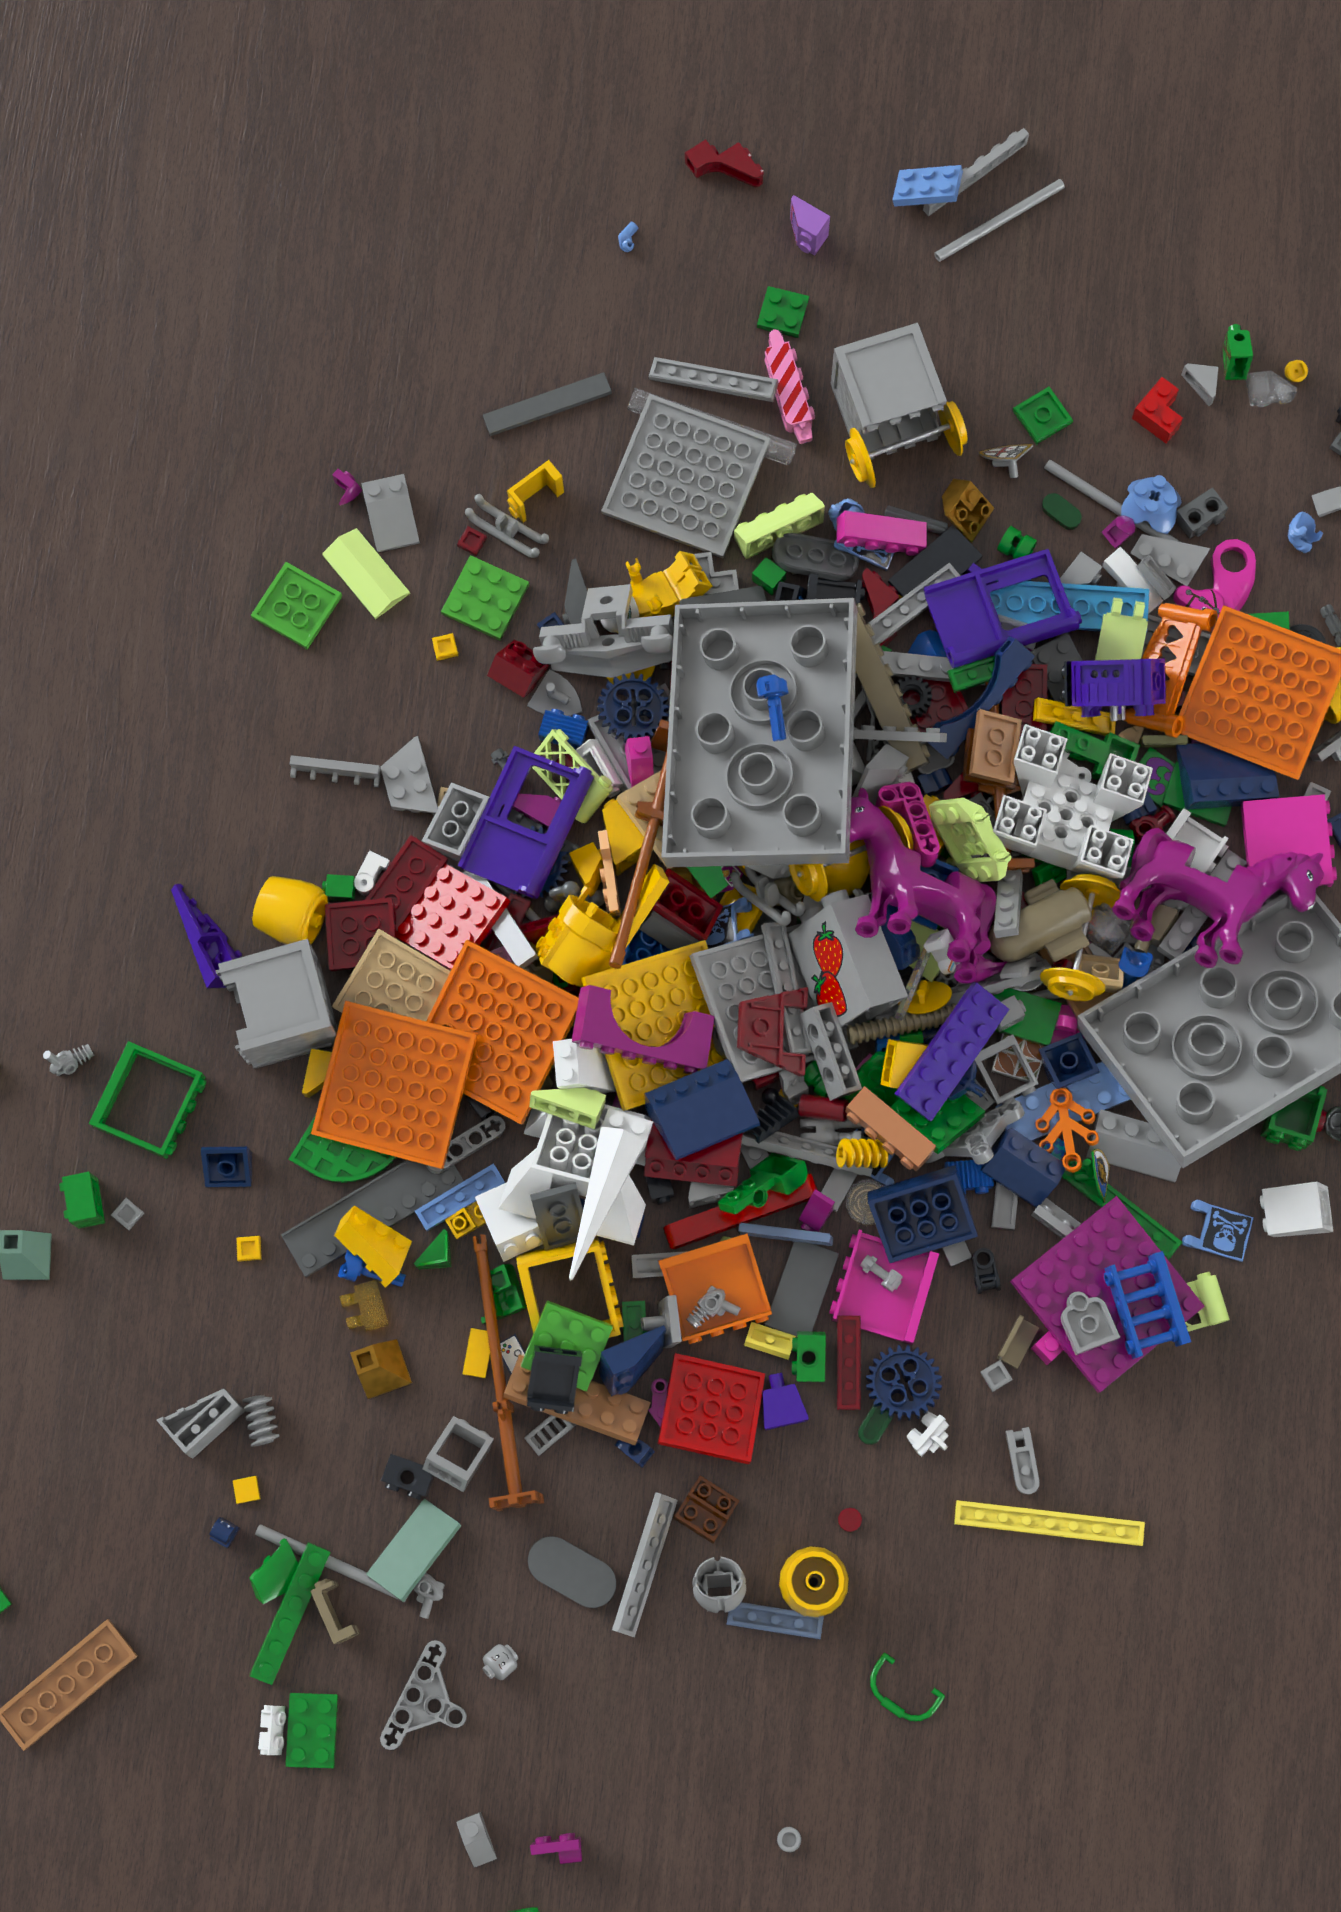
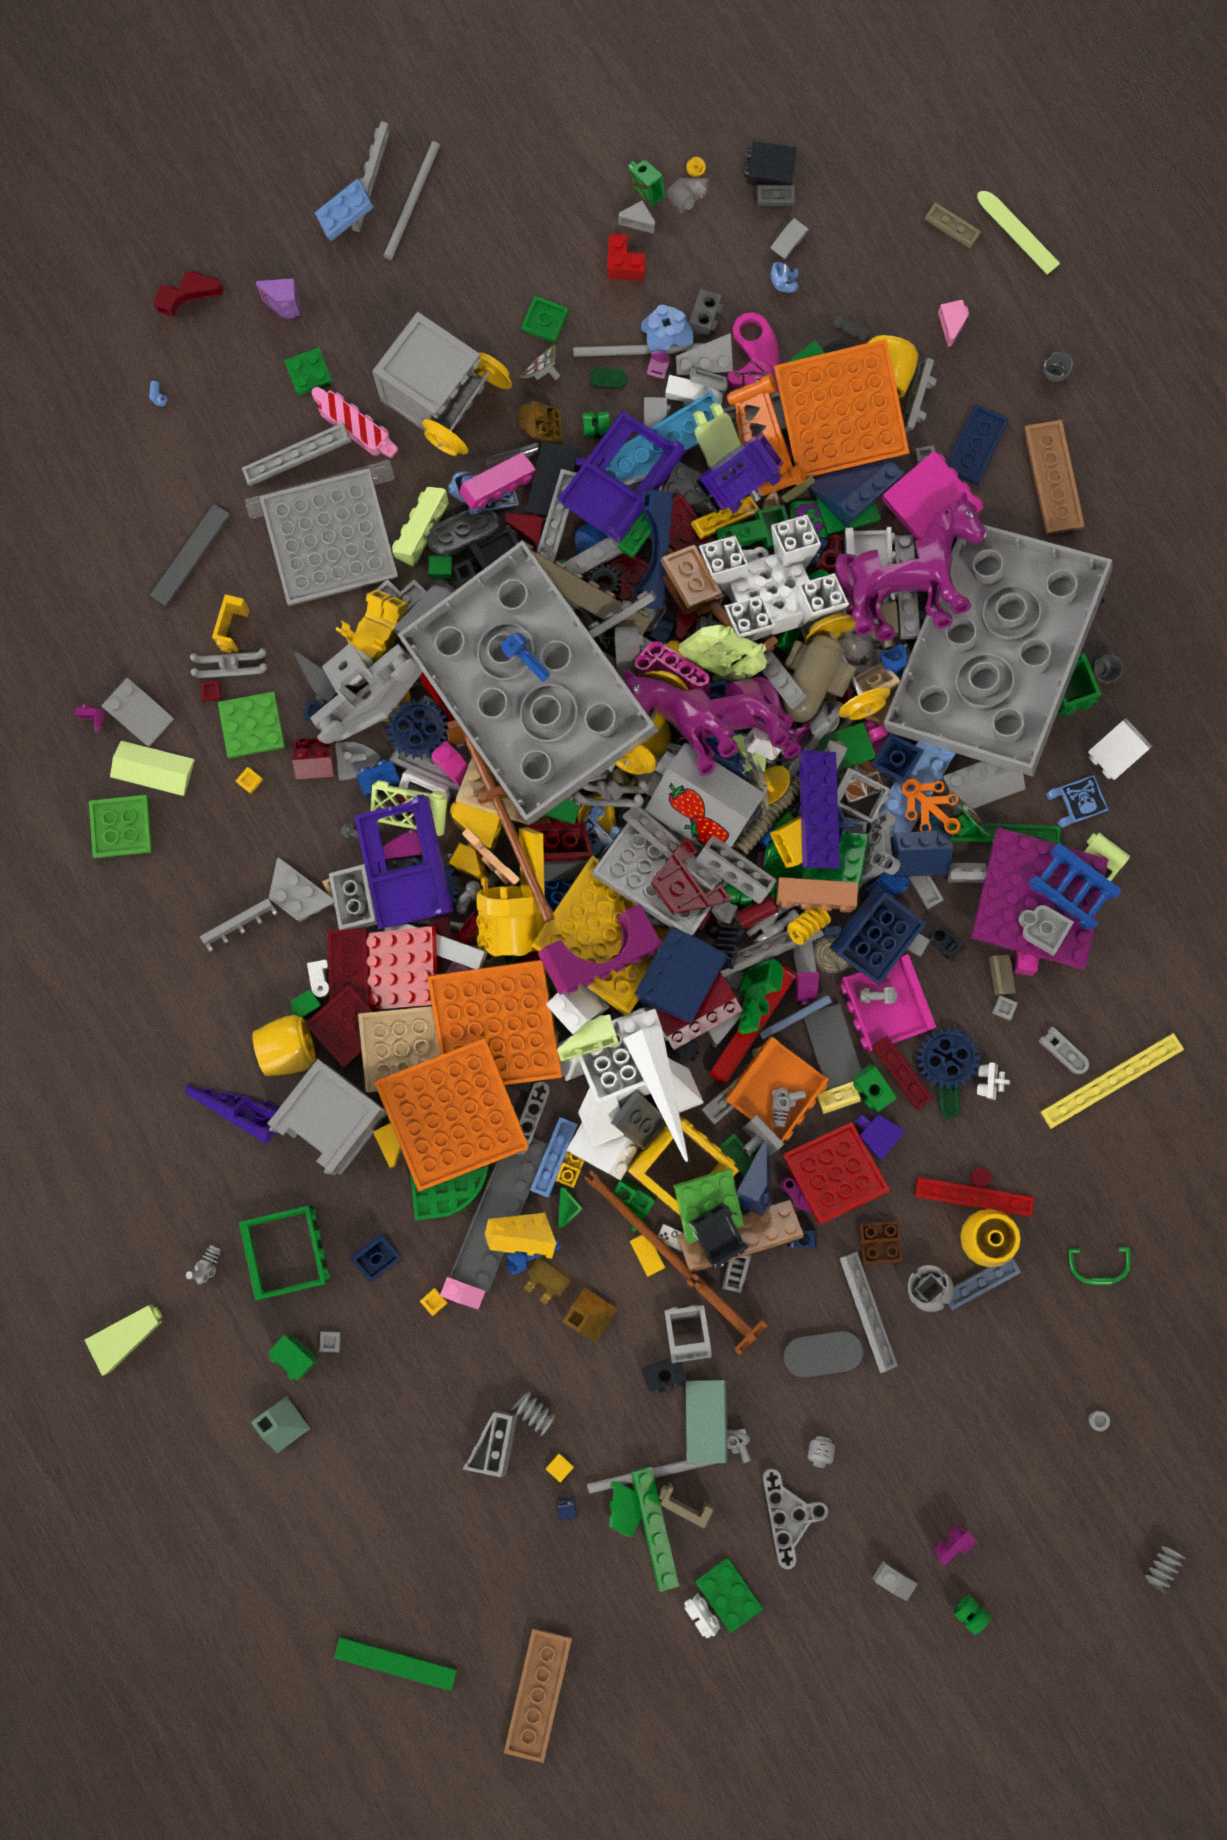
camera: 40 degrees left, 5 degrees up
(280, 1259) = (462, 1293): none -> bright pink slope
(830, 1533) = (974, 1197): none -> red tile

